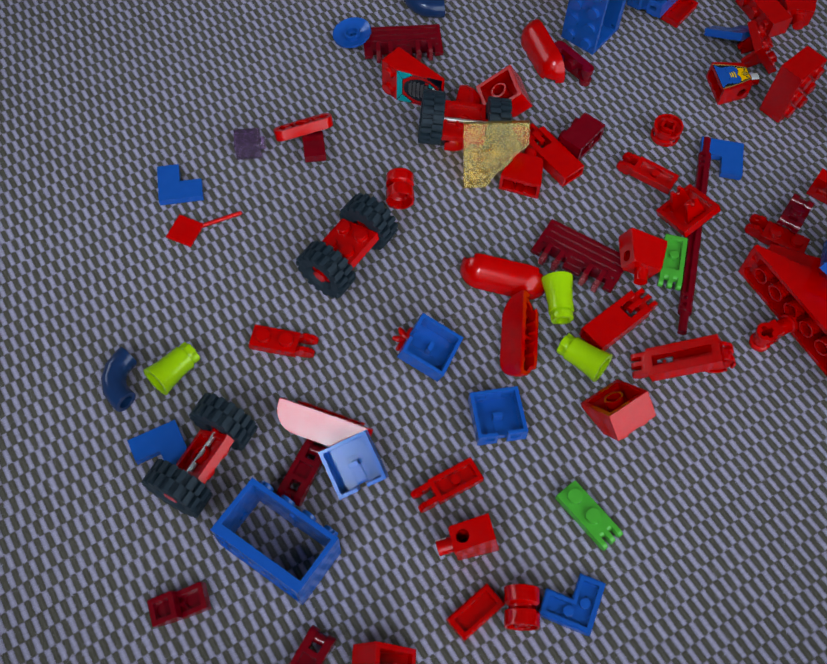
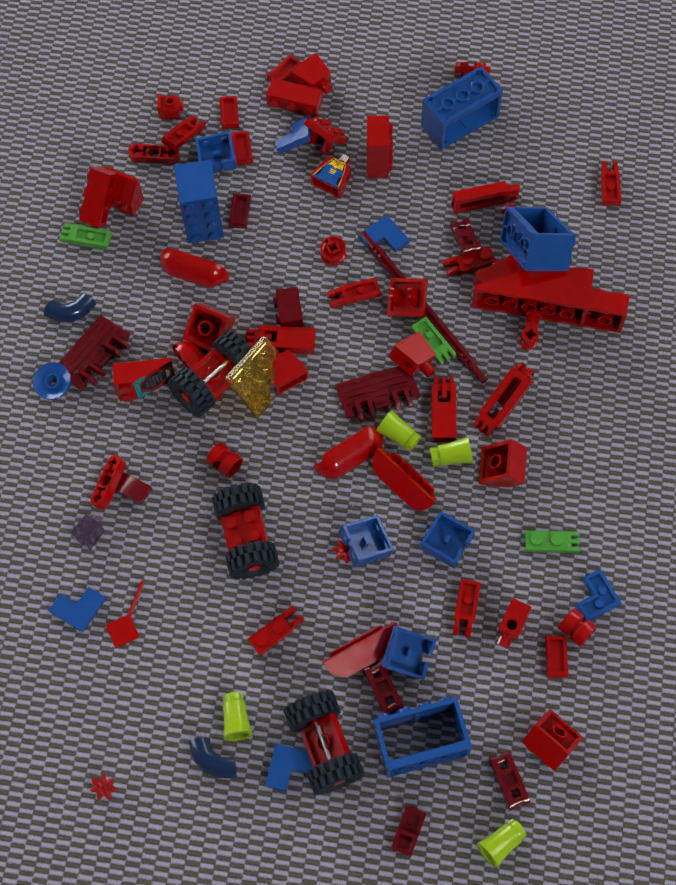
camera: 45 degrees left, 5 degrees up
(30, 315) = (103, 787): none -> red plant
(575, 63) = (226, 257): dark red plate -> none
(626, 47) = (240, 211): none -> dark red tile

